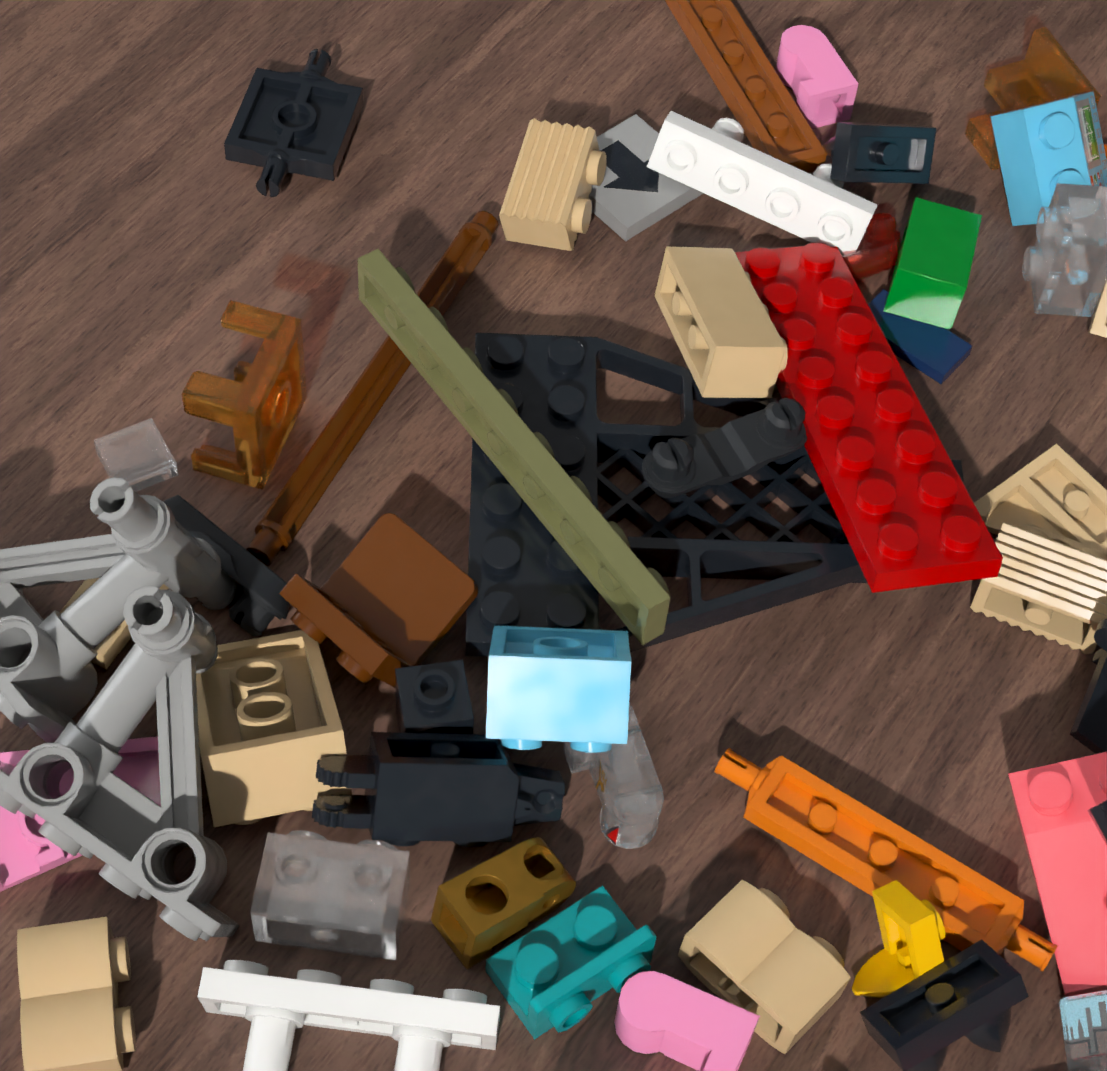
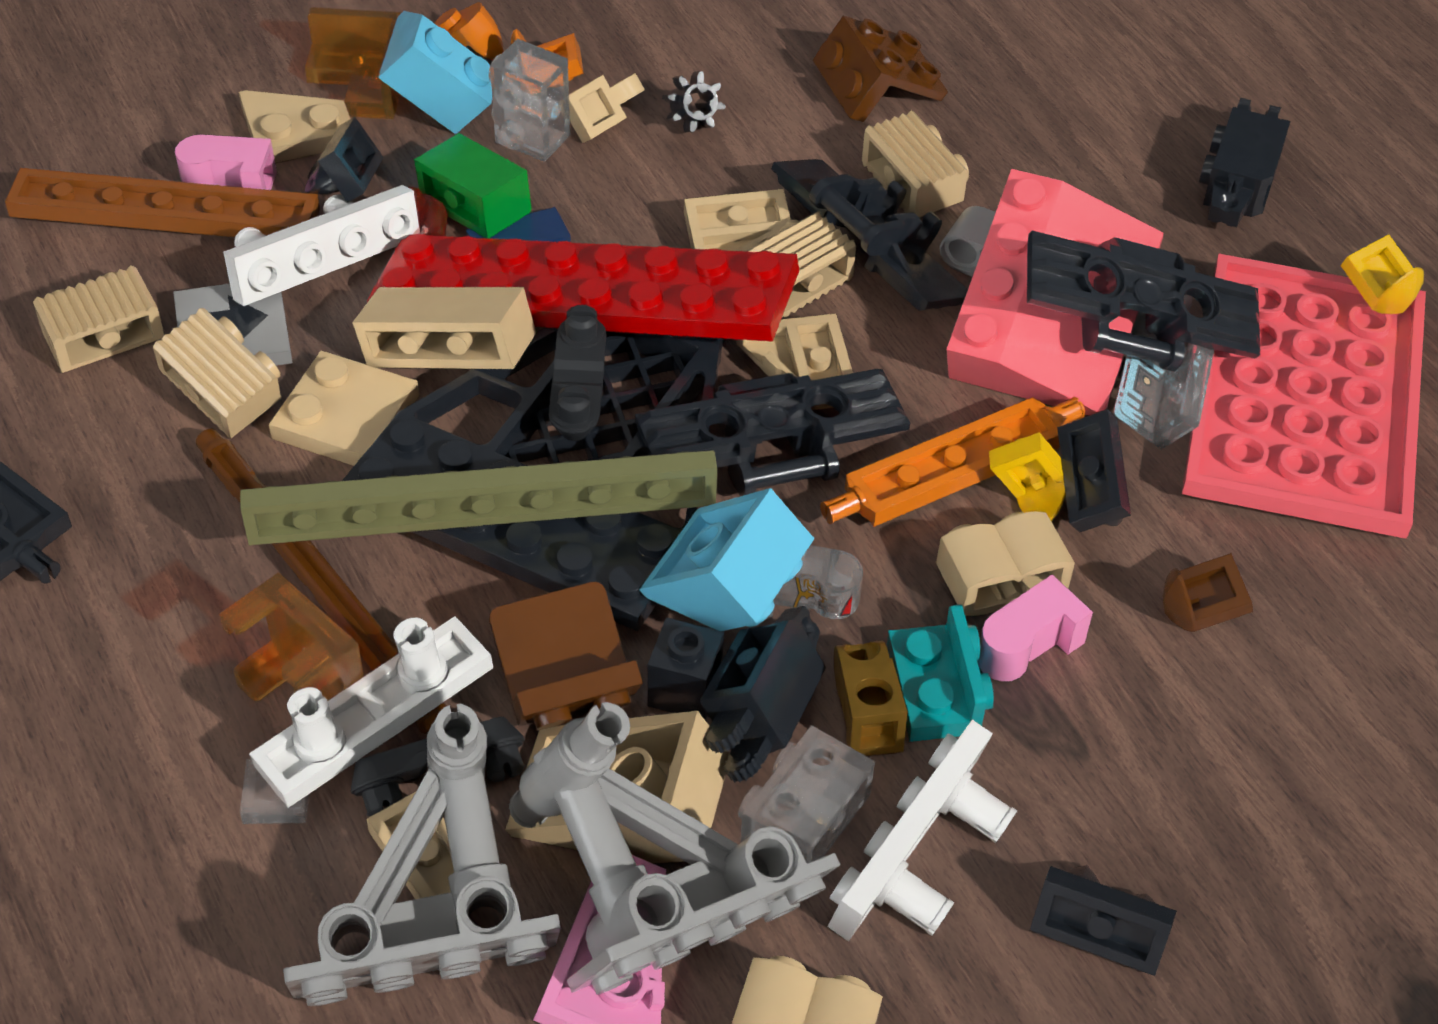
camera: 60 degrees left, 5 degrees down
(252, 483) = (365, 715): none -> white plate
(563, 78) = (98, 318): none -> tan brick
(594, 297) = (341, 407): none -> tan plate
(812, 645) = (773, 410): none -> black piece
(913, 92) = (293, 123): none -> tan wing
(925, 656) = (803, 348): none -> tan wing

